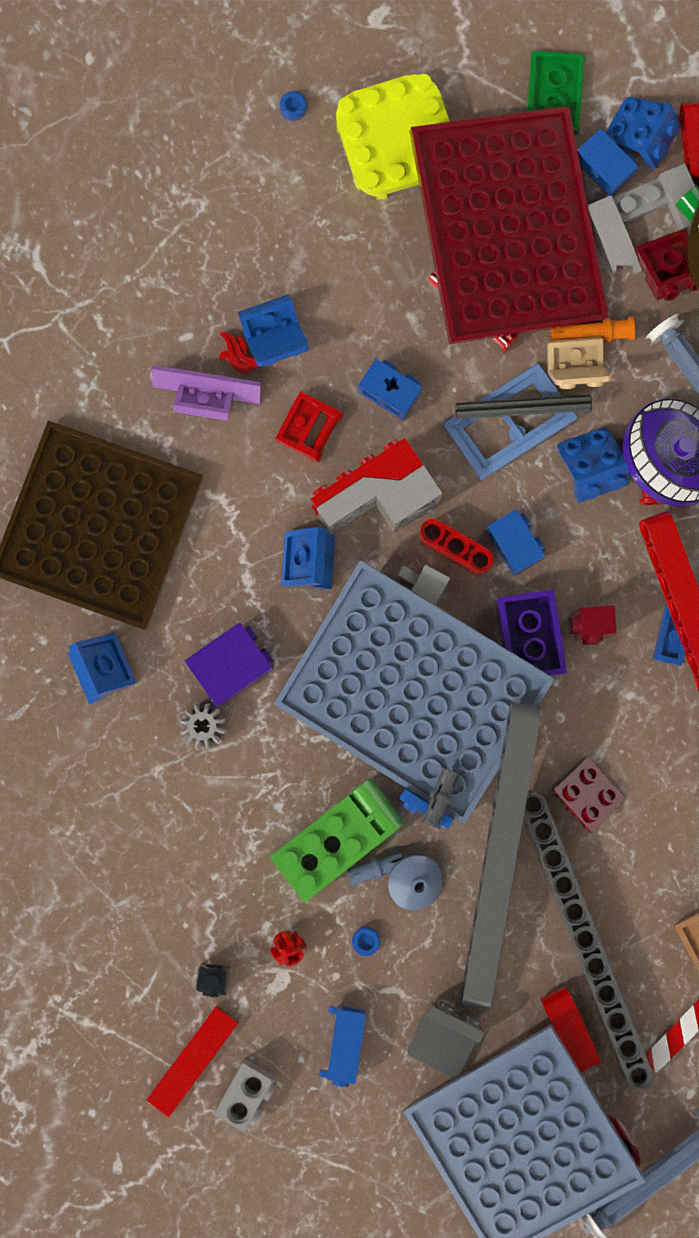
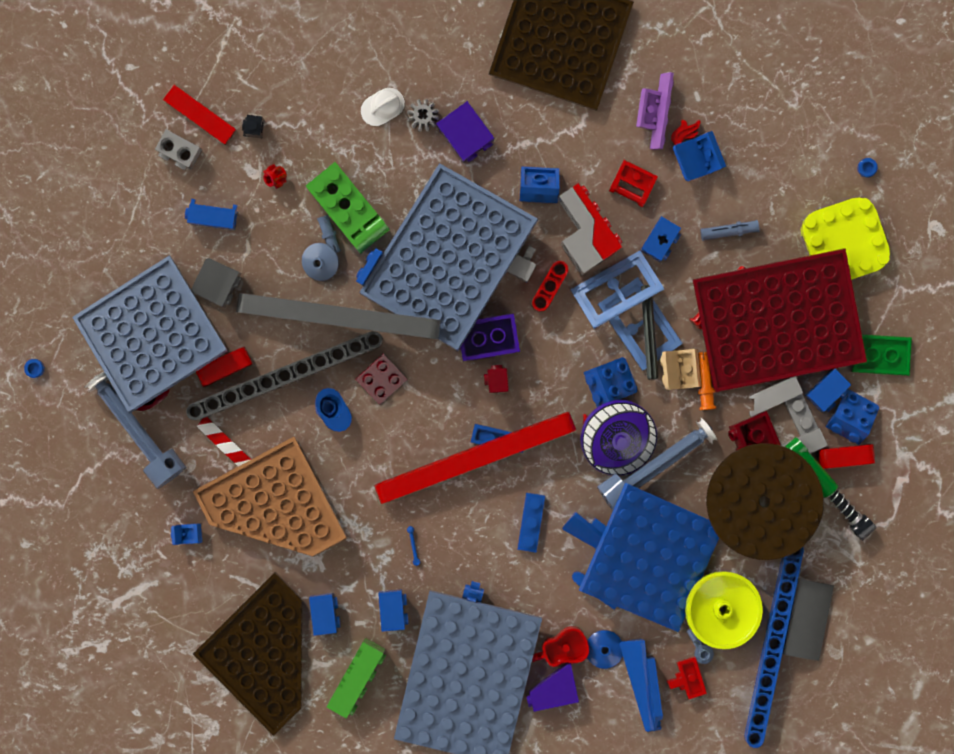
camera: 85 degrees right, 5 degrees up
(100, 666) = (462, 44): blue bracket -> none
(188, 786) = (382, 106): none -> white piece
(366, 941) = (280, 229): blue tile -> none
(376, 282) = (730, 230): none -> sand blue pin
(439, 465) = (608, 275): none -> medium blue door
(440, 798) = (376, 275): dark grey pin -> none
(516, 542) = (553, 328): blue brick -> none
(637, 866) = (332, 410): none -> blue piece

